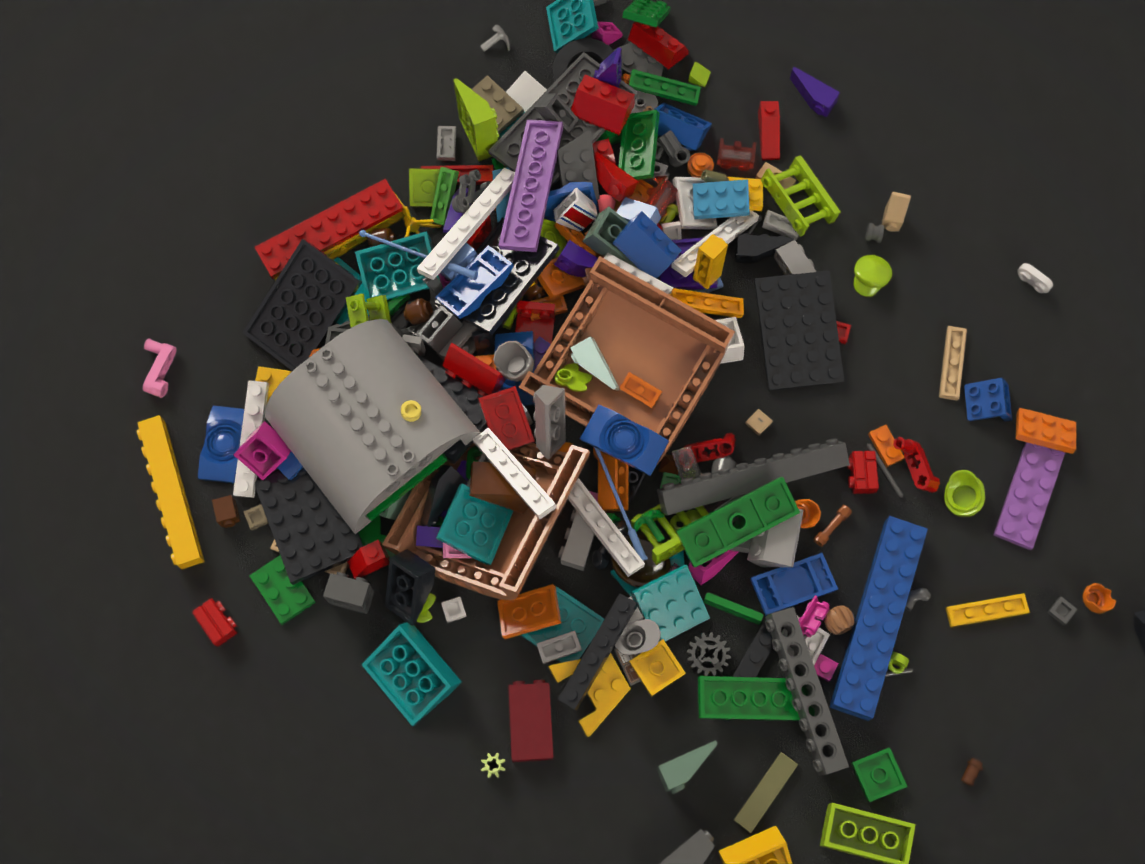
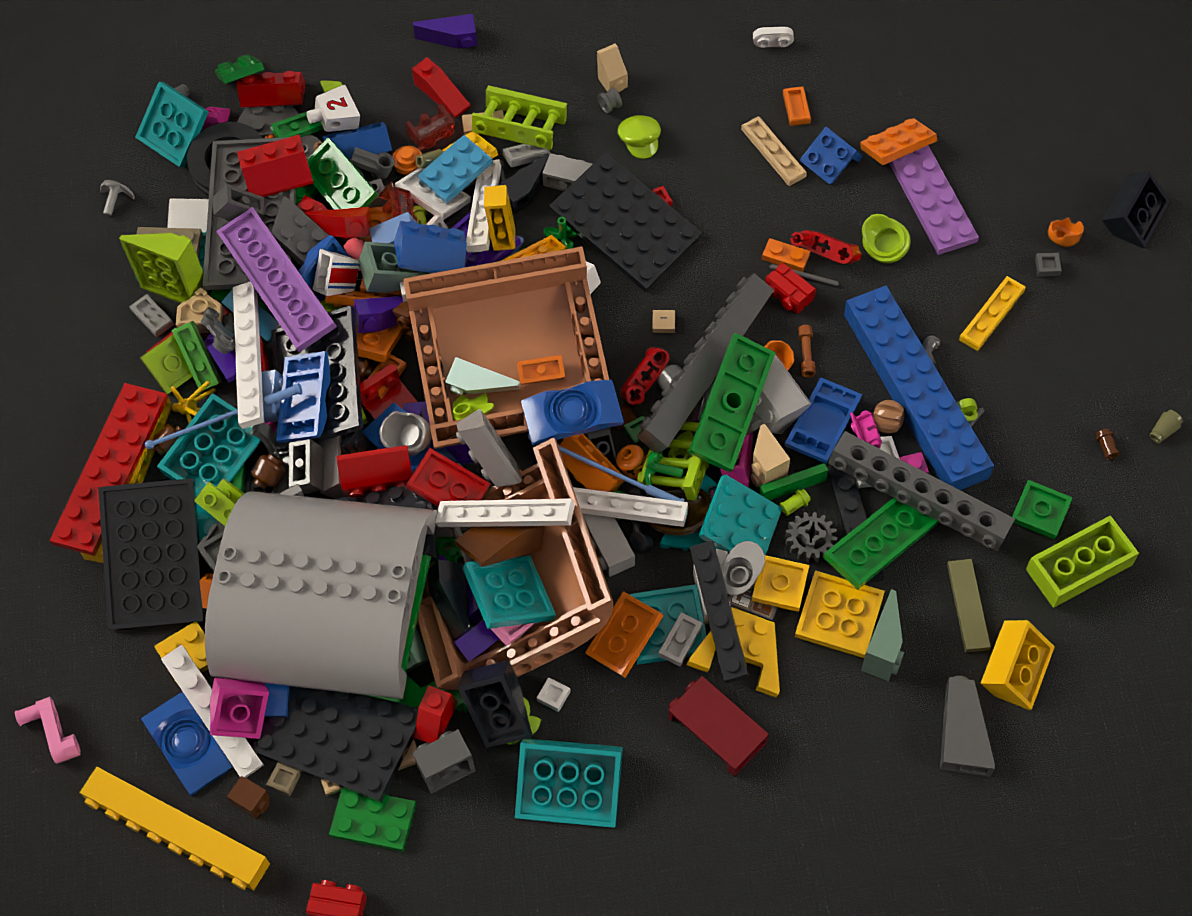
camera: 40 degrees left, 10 degrees down
(410, 410) = (361, 532): light yellow tile -> none
(468, 162) = (194, 310): none -> tan plate
(491, 759) = (717, 797): yellowish green gear -> none
(611, 69) = (256, 128): dark purple slope -> none
(643, 500) = (631, 460): none -> orange head
(675, 722) = (839, 614): none -> yellow plate
(682, 92) = (335, 110): none -> white torso
(686, 463) = (638, 397): clear slope -> none
(722, 622) = (796, 501): none -> lime pin
(727, 579) = (769, 459): none -> tan slope
(749, 300) = (562, 233): none -> green plant
(1002, 343) = (796, 106): none -> orange tile
(1025, 797) = (1166, 426): none -> olive cone

